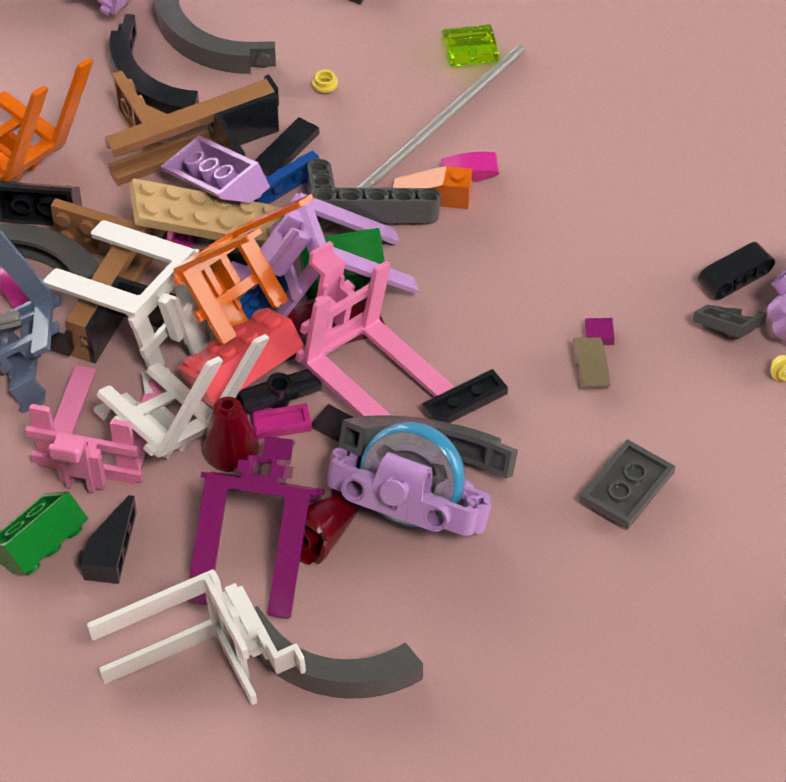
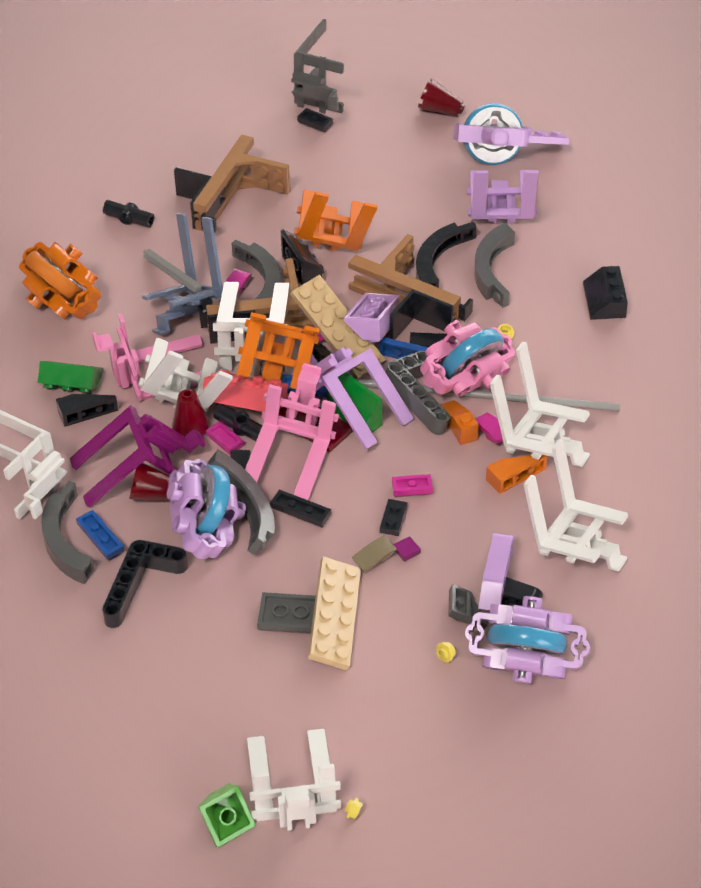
camera: 60 degrees right, 5 degrees down
(357, 622) = (100, 534): none -> blue plate
(366, 125) = (468, 359): none -> bright pink piece
(459, 615) = (139, 556): none -> black beam
(470, 45) = (597, 382): clear neon green slope -> none
(506, 278) = (412, 485): none -> dark pink plate
(529, 129) = (541, 436): none -> white piece
(540, 320) = (393, 517): none -> black plate
(554, 182) = (512, 471): none -> orange slope
(660, 440) = (334, 613): none -> tan plate
(705, 175) = (579, 540): none -> white piece
(711, 258) = (496, 570): none -> lavender piece

